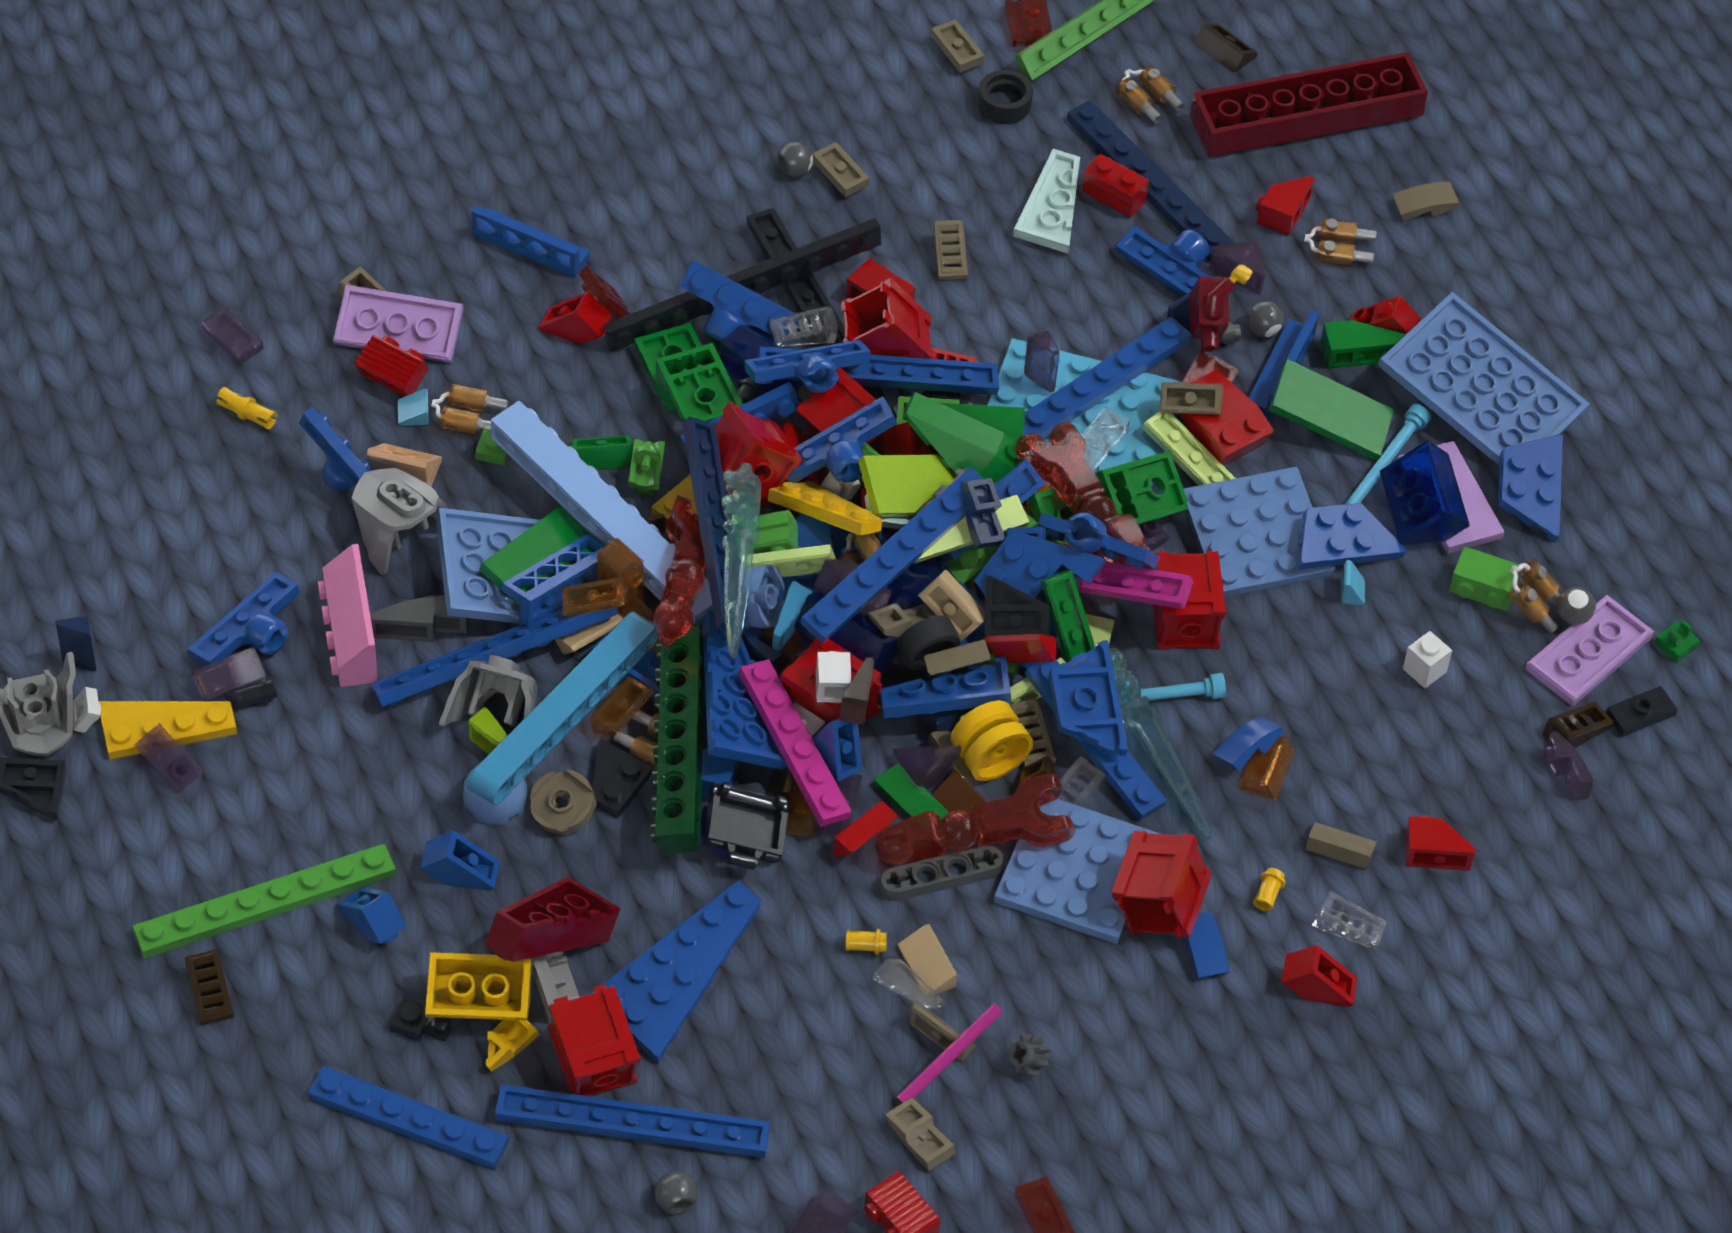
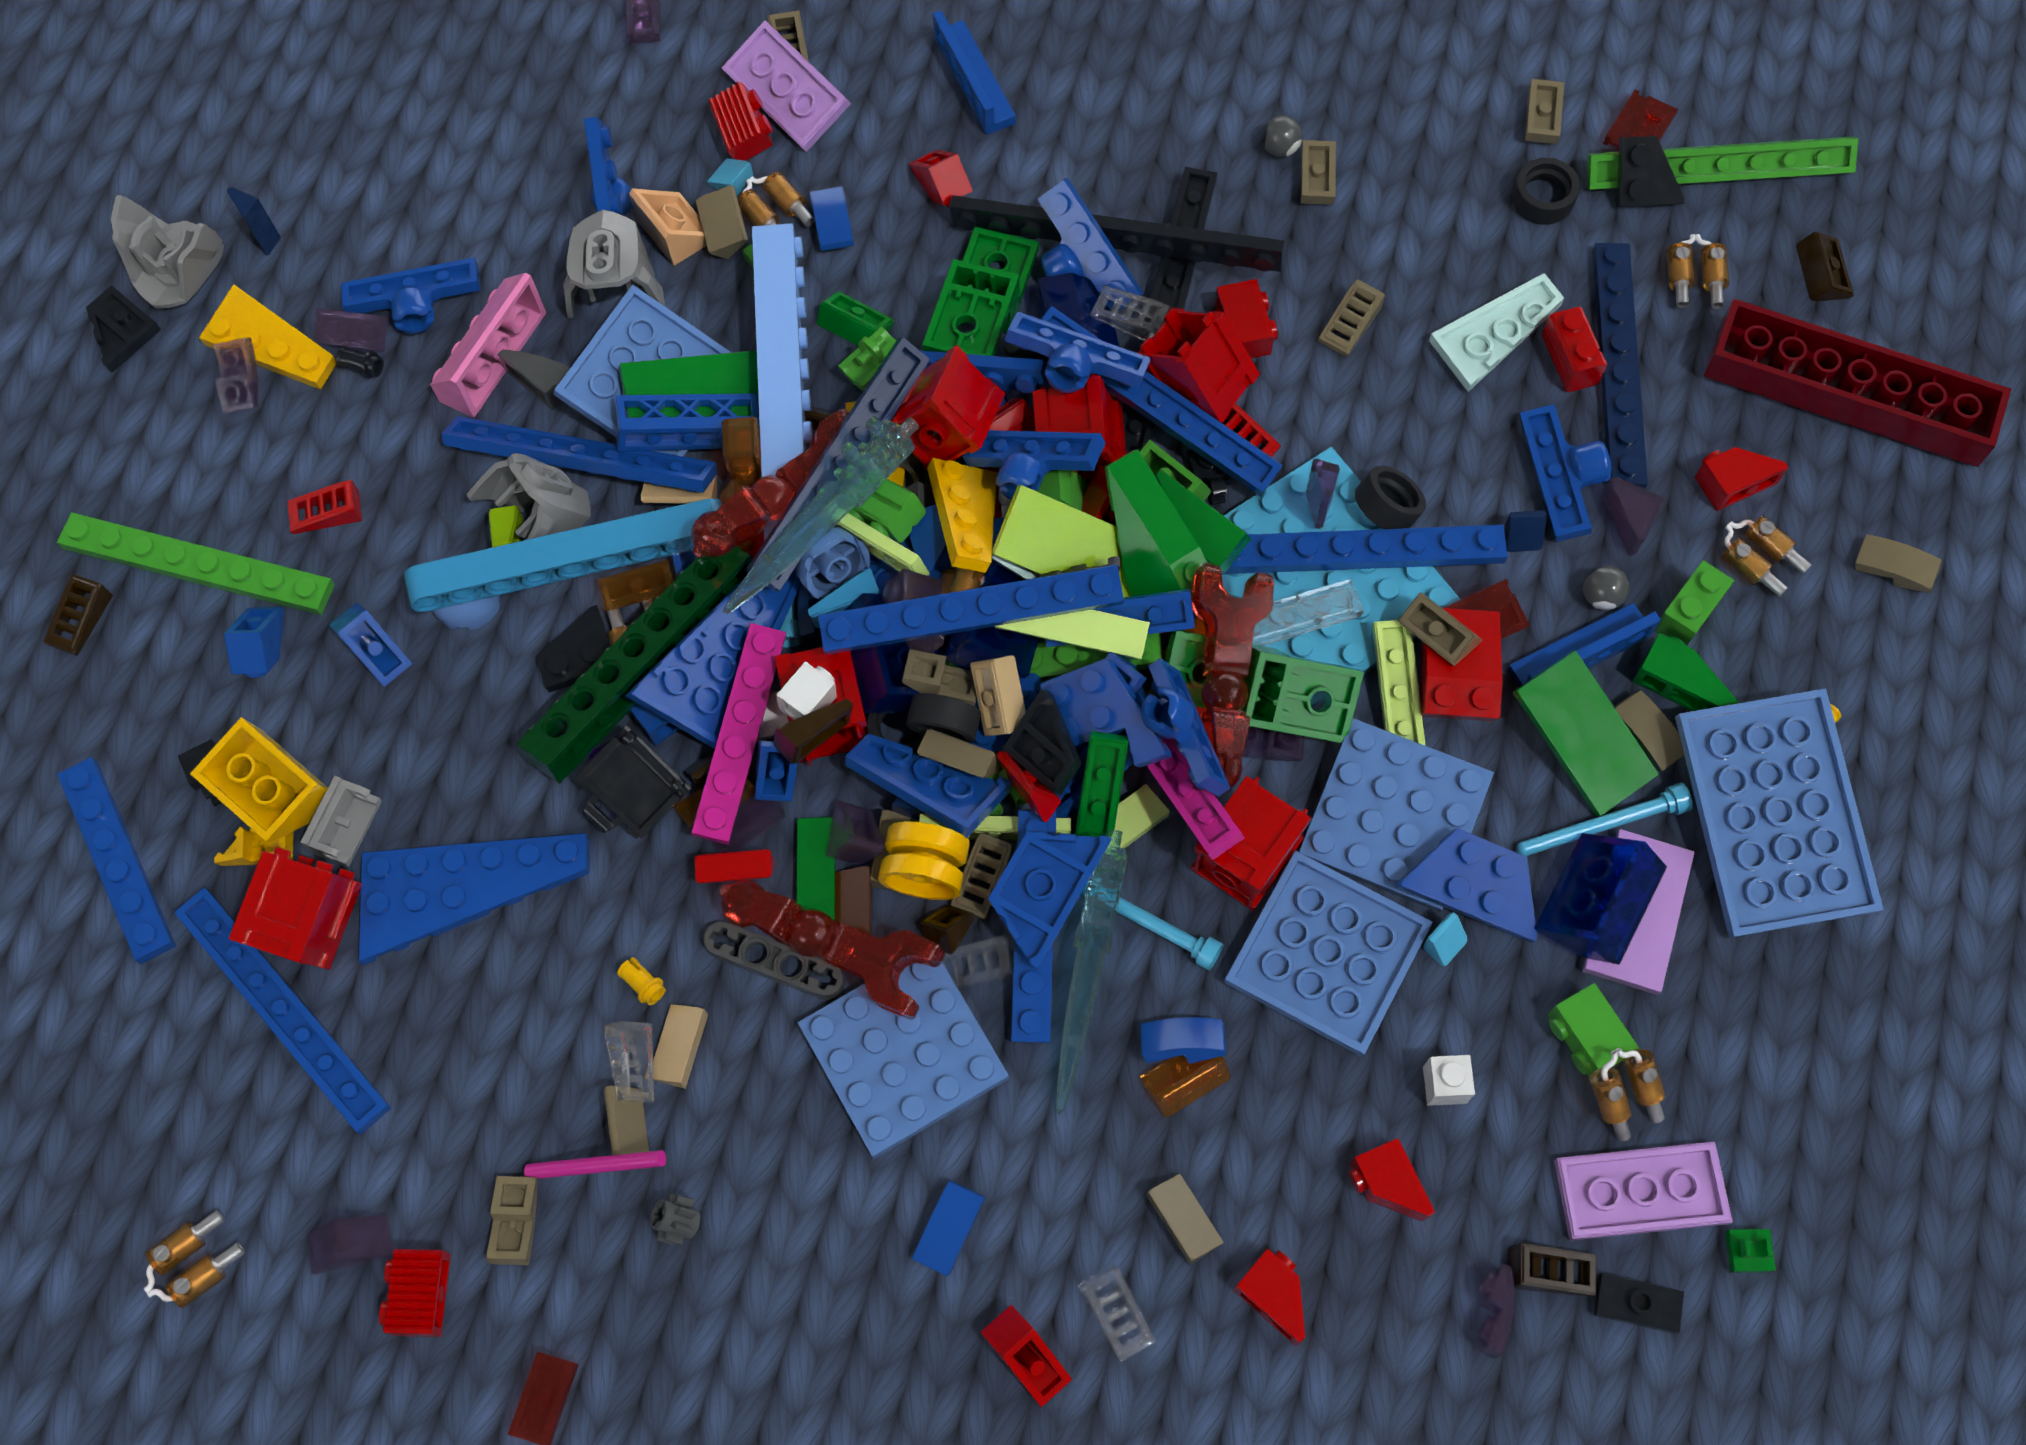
camera: 45 degrees right, 15 degrees up
(85, 709) = (216, 286): white plate -> none
(246, 408) = (594, 87): yellow pin -> none
(343, 787) = (345, 514): none -> red slope
(443, 440) = (722, 222): none -> dark tan slope
(516, 387) = (831, 218): none -> blue slope
(552, 922) = (361, 761): dark red wedge -> none
(565, 819) = (521, 652): dark tan plate -> none
(594, 596) = (691, 463): clear orange slope -> none
(603, 292) = (980, 165): clear red plate -> none
(676, 1192) = (248, 1111): dark grey piece -> none
(980, 509) = (1088, 621): dark blue slope -> none
(1063, 48) = (1645, 174): none -> black wing
(1084, 344) = (1390, 498): none -> black tyre
(1161, 884) = (944, 1139): red container -> none
(1211, 309) = (1539, 546): dark red torso -> none
(1271, 883) = (1065, 1215): yellow pin -> none
(1290, 638) = (1328, 953): none -> medium blue plate
(1328, 292) = (1694, 603): none -> bright green brick
(1368, 384) = (1651, 730): none -> dark tan slope
(1389, 314) = (1738, 669): red slope -> none
(1446, 738) = (1391, 1181): none -> red slope
(1532, 483) = (1738, 959): blue wing -> none
(1576, 605) = (1663, 1134): dark grey piece -> none

